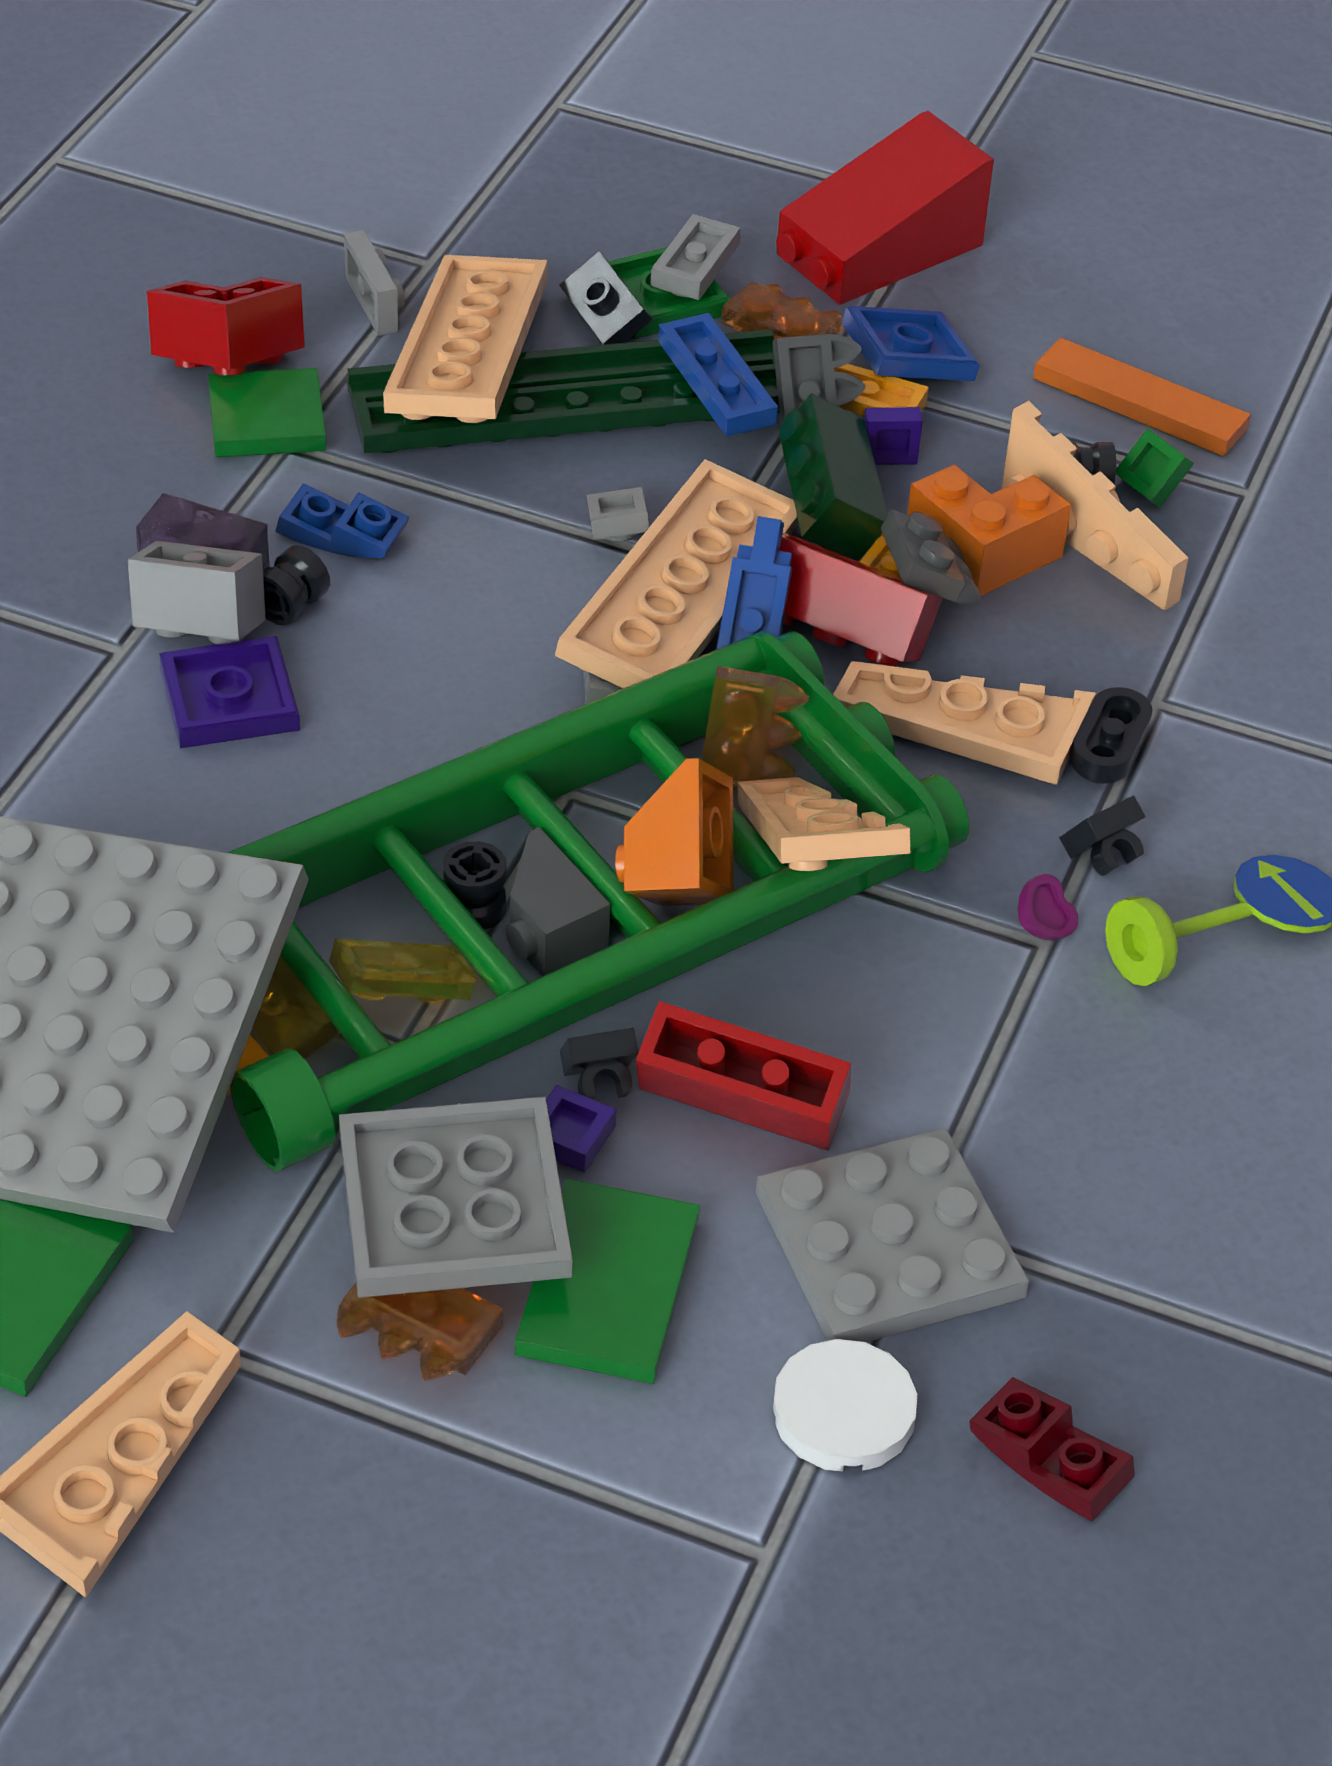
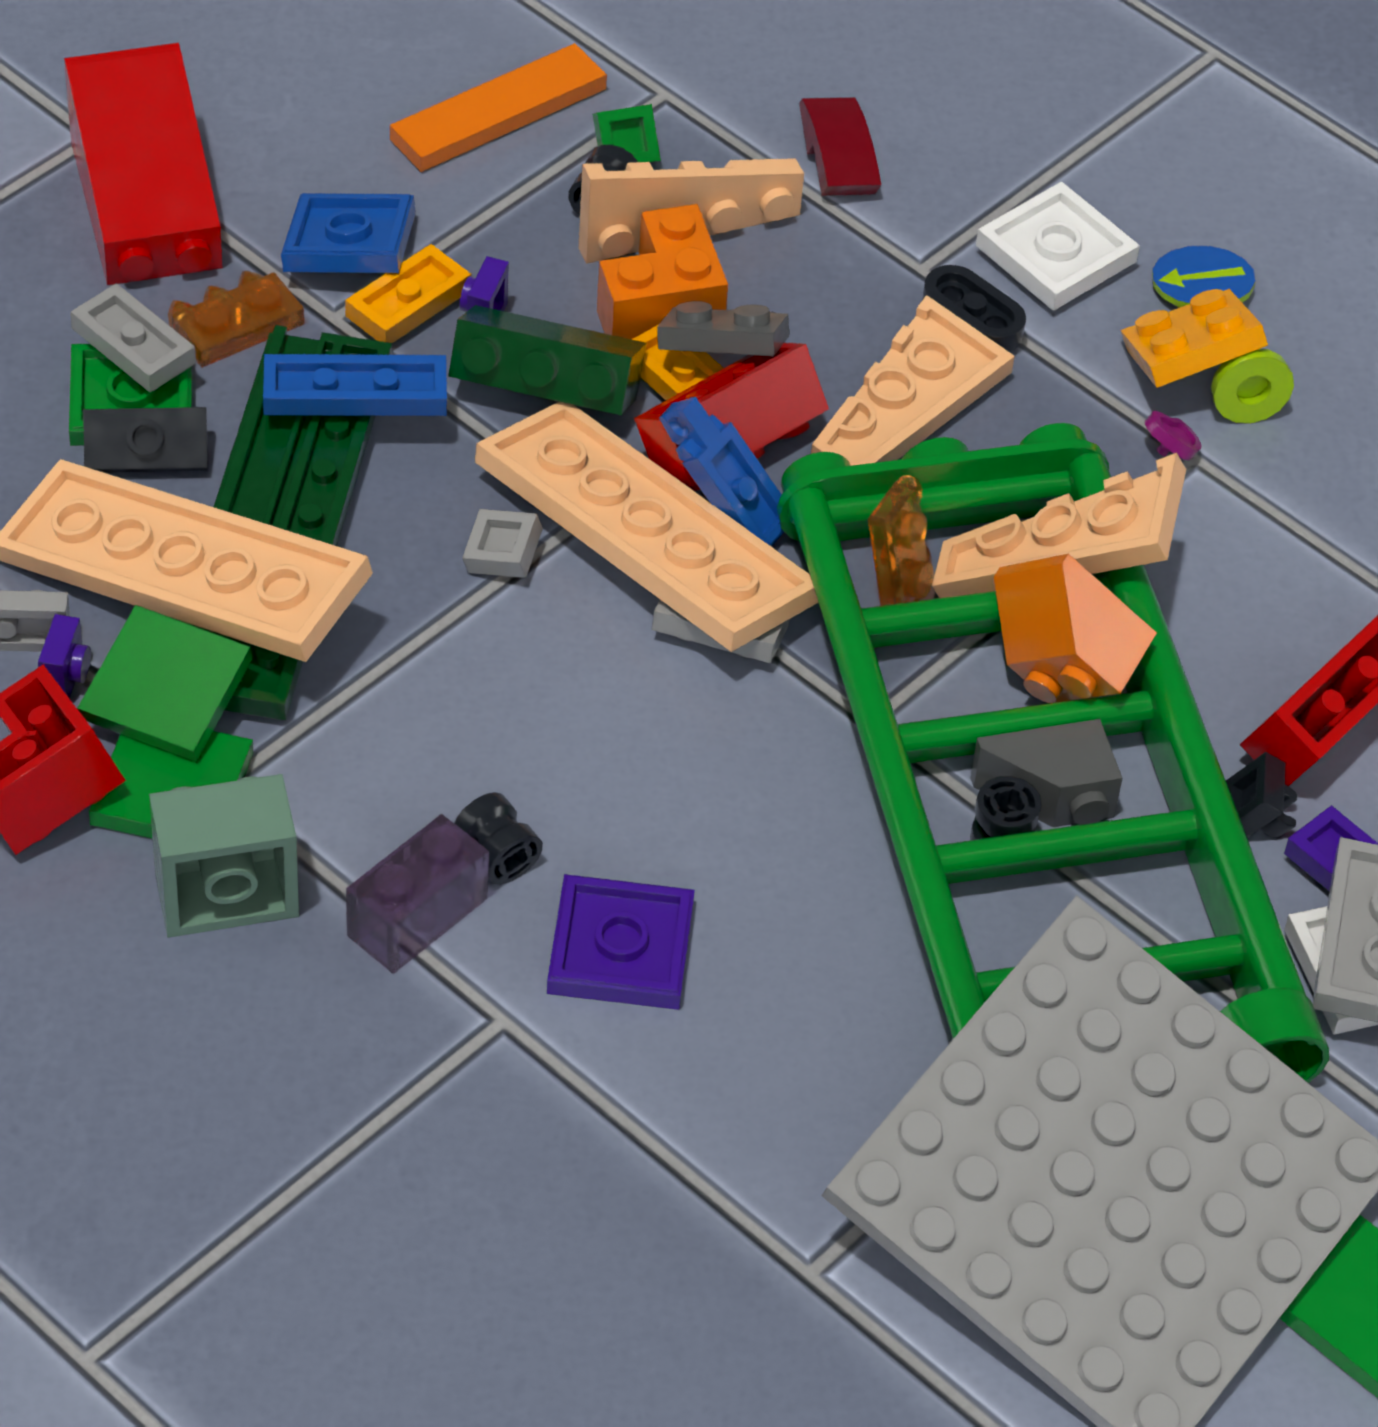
camera: 70 degrees left, 5 degrees up
(174, 427) = (225, 855): none -> sand green brick
(196, 591) = (499, 909): light grey brick -> none
(339, 364) = (165, 683): none -> green tile
(346, 318) = (64, 653): none -> dark purple plate
(354, 530) = (402, 773): blue slope -> none
(402, 969) = (1113, 891): clear yellow plate -> none
(807, 367) = (406, 319): dark grey plate -> none
(1106, 831) = (1099, 360): black tile -> none
(1163, 873) = (1193, 336): none -> light orange plate
(1241, 774) = (1057, 245): none -> white plate
(1254, 596) = (841, 145): none -> dark red slope

